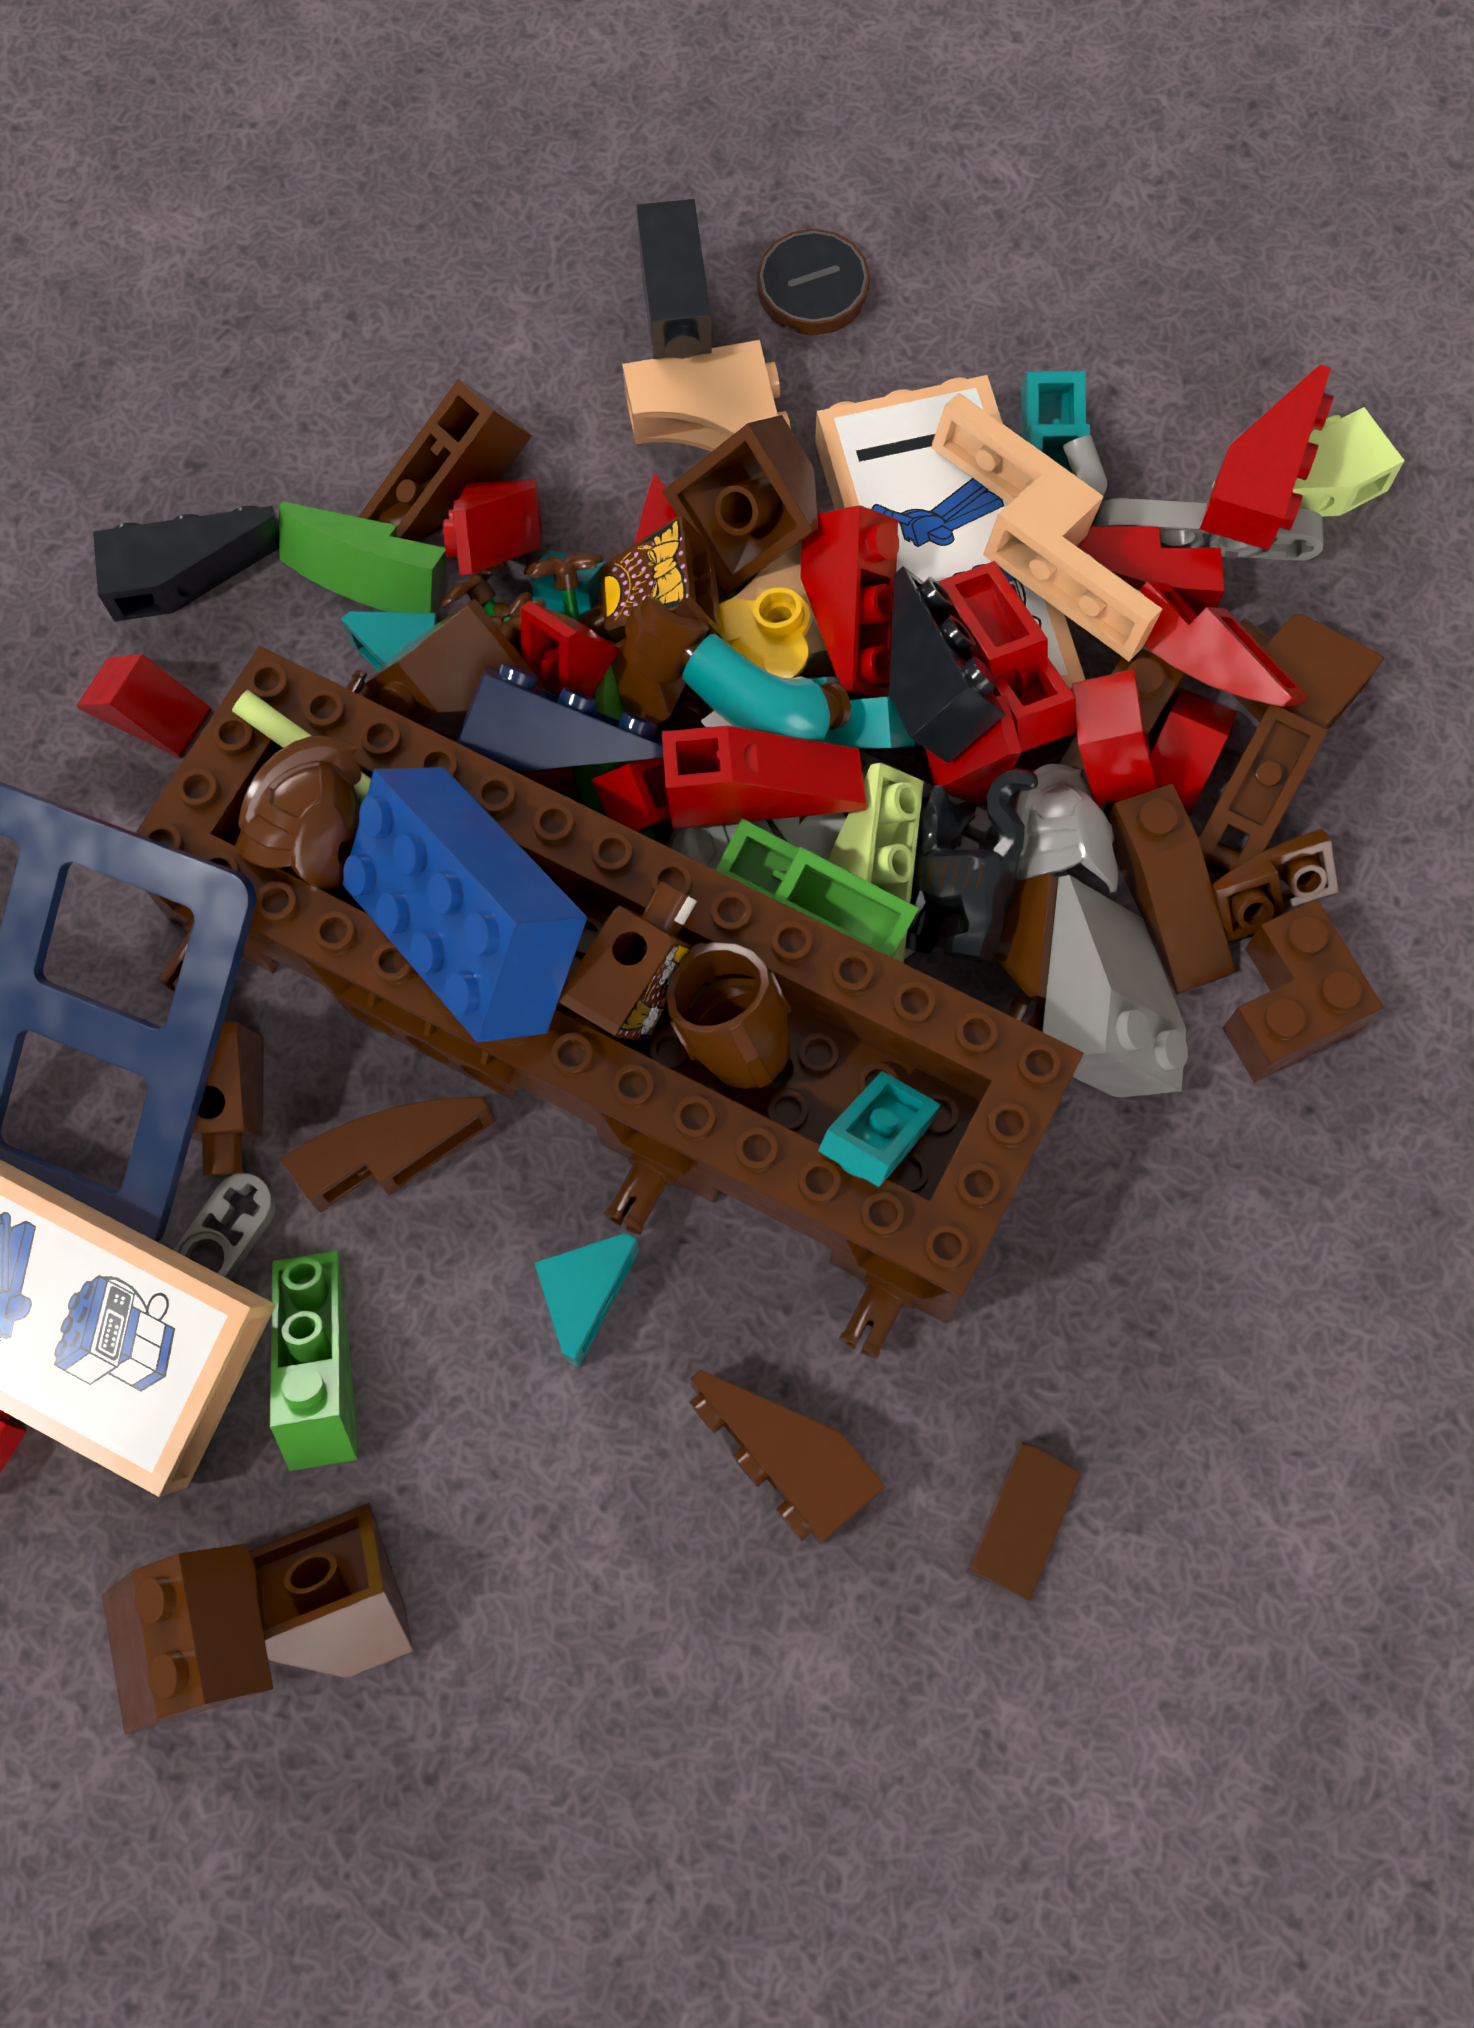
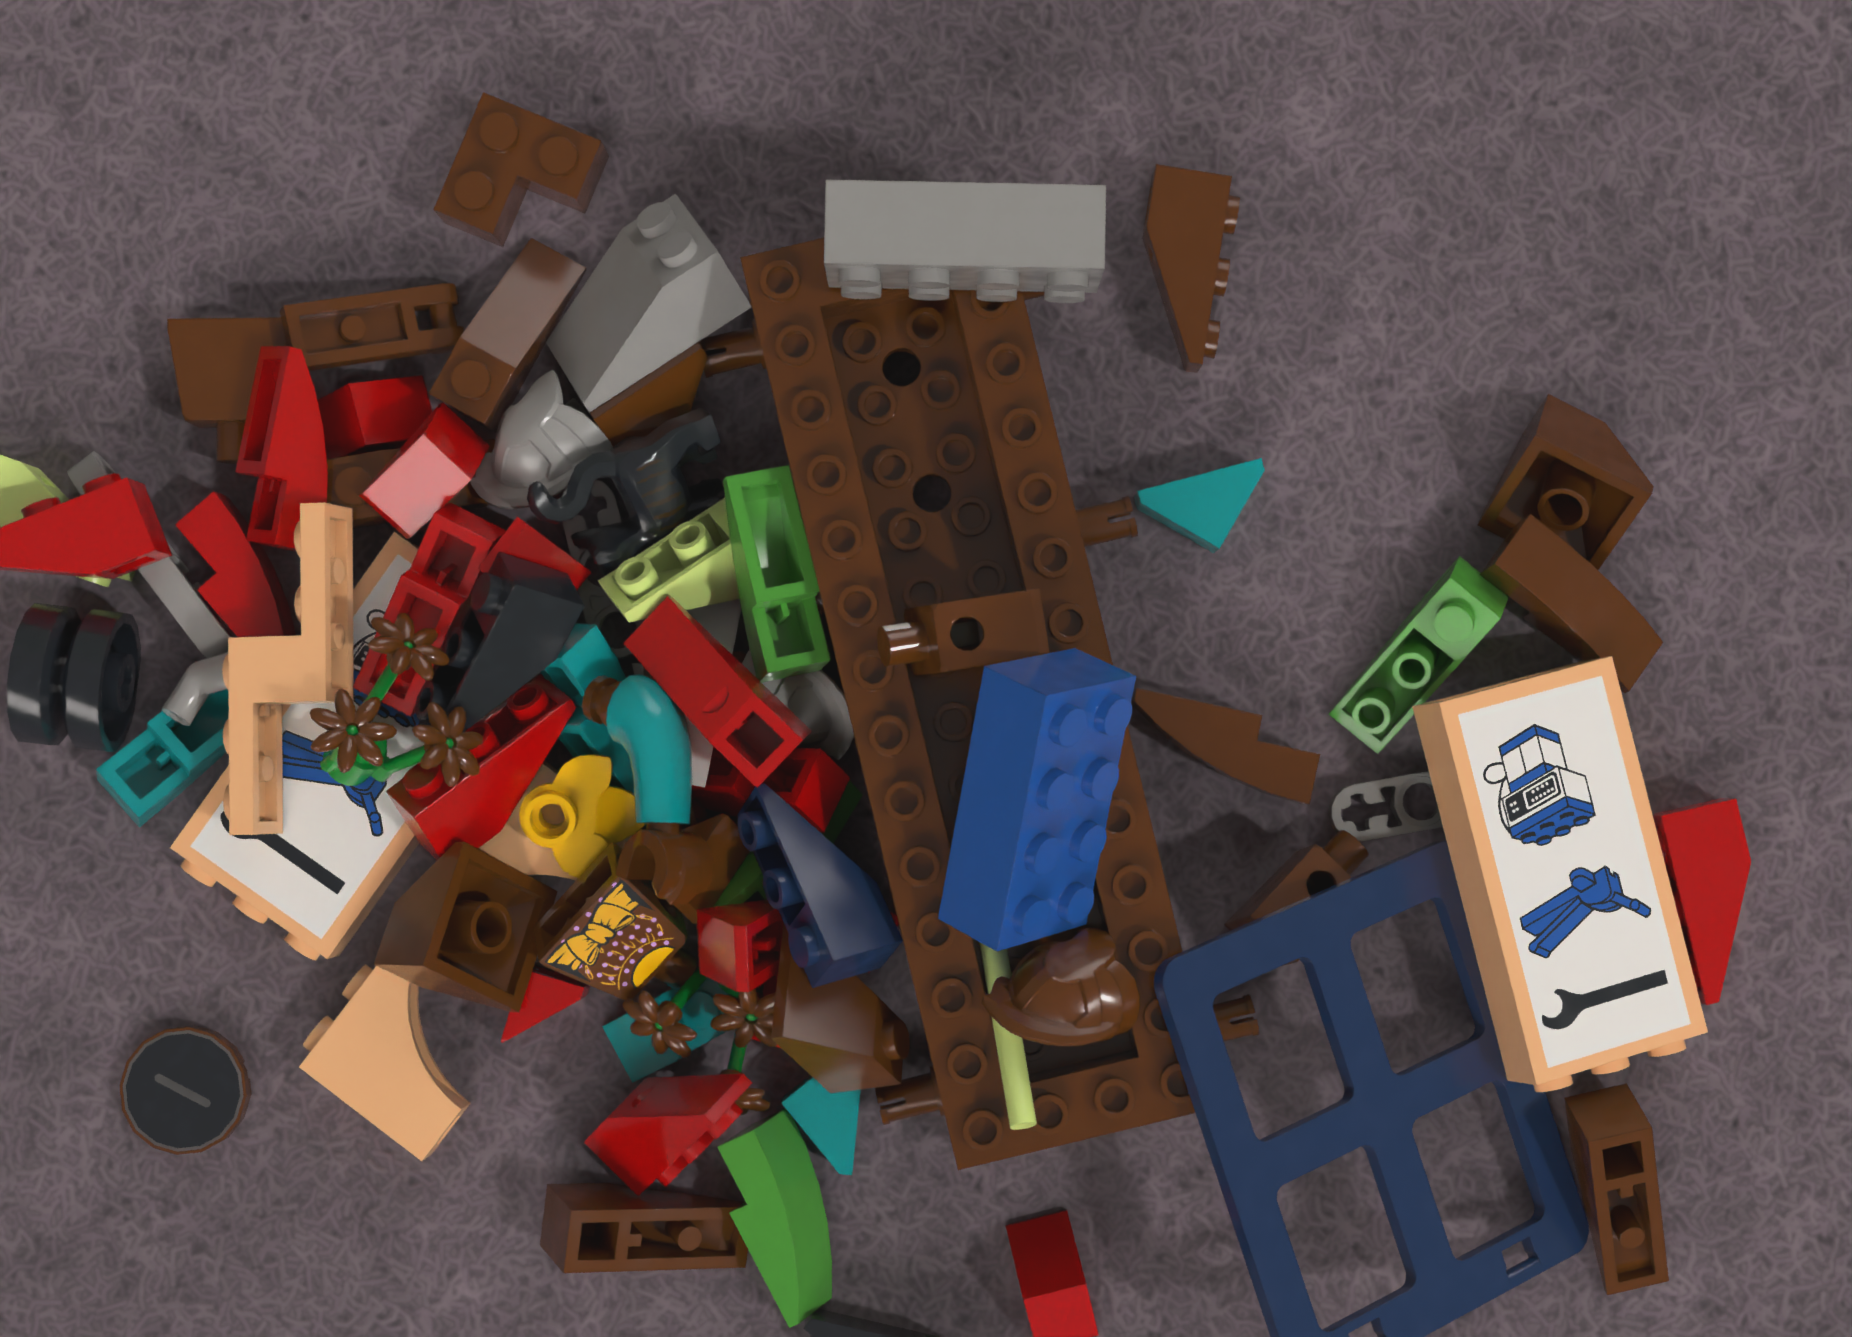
camera: 130 degrees left, 15 degrees up
(186, 1636) = (1685, 543): reddish brown slope -> none
(247, 1509) = (1571, 600): none -> reddish brown slope
(674, 279) = (313, 1178): black slope -> none
(737, 1022) = (937, 536): reddish brown helmet -> none
(879, 1129) = (926, 355): teal plate -> none
(946, 527) = (358, 747): none -> reddish brown plant
(946, 1206) = (964, 239): none -> light grey brick
(1024, 1521) = (1087, 60): reddish brown slope -> none
(1164, 402) = (73, 677): none -> black wheel
(1275, 881) = (459, 268): reddish brown slope -> none

